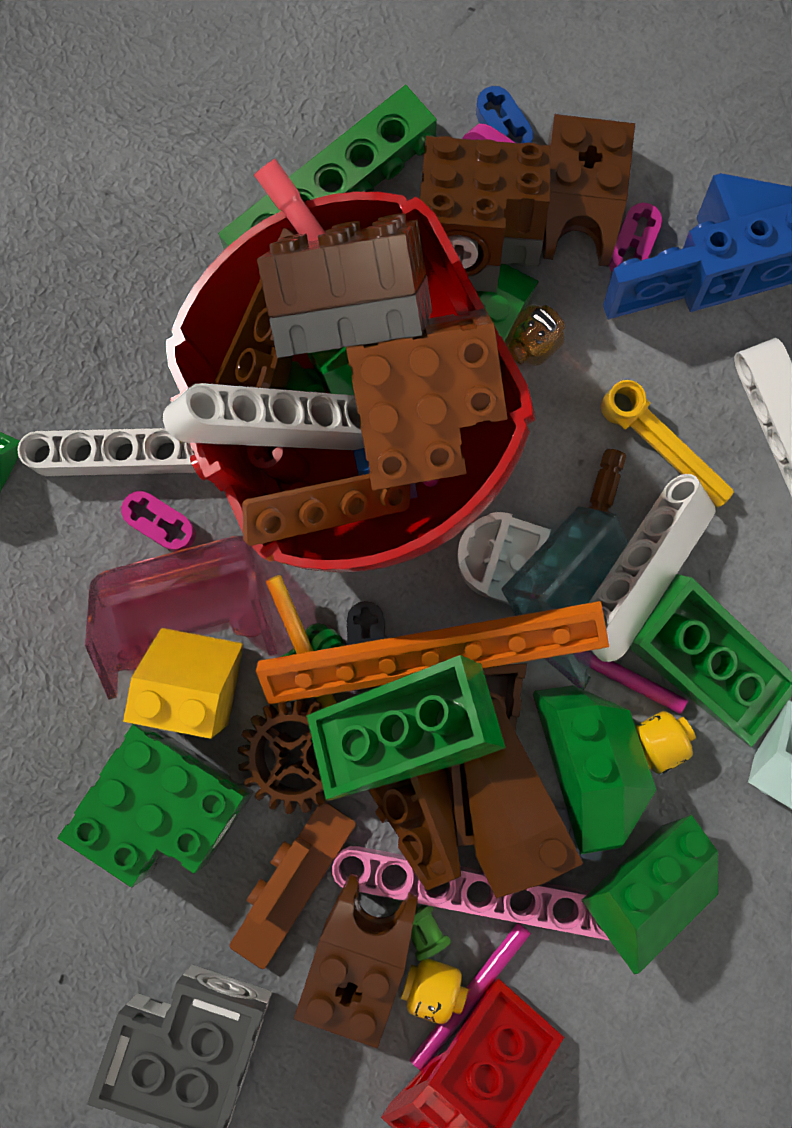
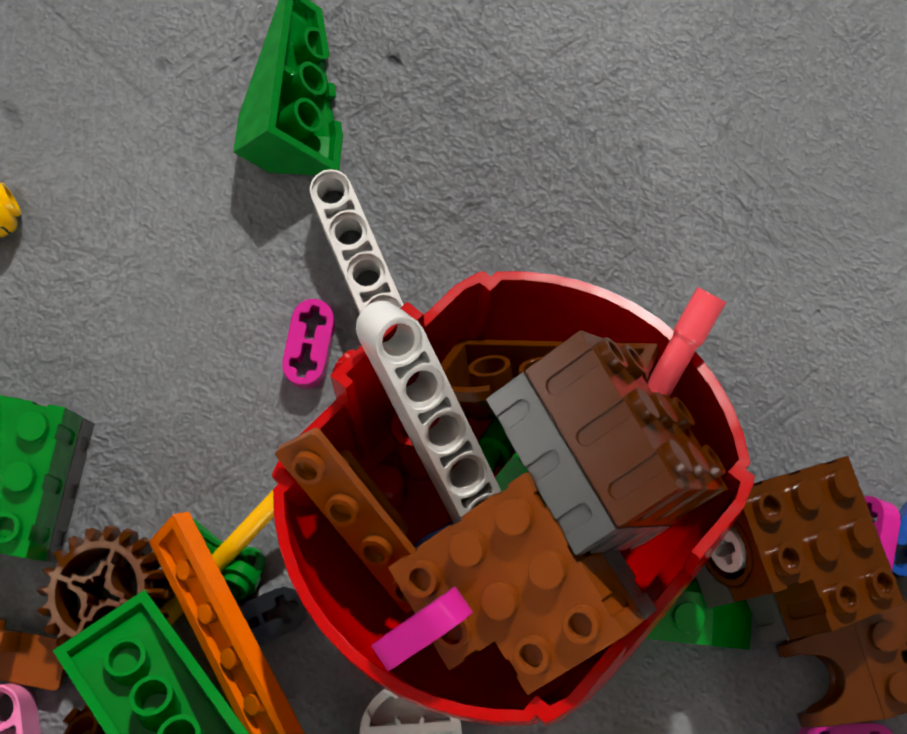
camera: 65 degrees right, 5 degrees down
(174, 592) = (228, 385): clear pink windscreen -> none
(185, 684) = (134, 444): yellow slope -> none
(398, 115) = (865, 415): green brick -> none
(429, 474) = (422, 629): none -> dark pink beam
(536, 335) = (683, 673): clear orange head -> none

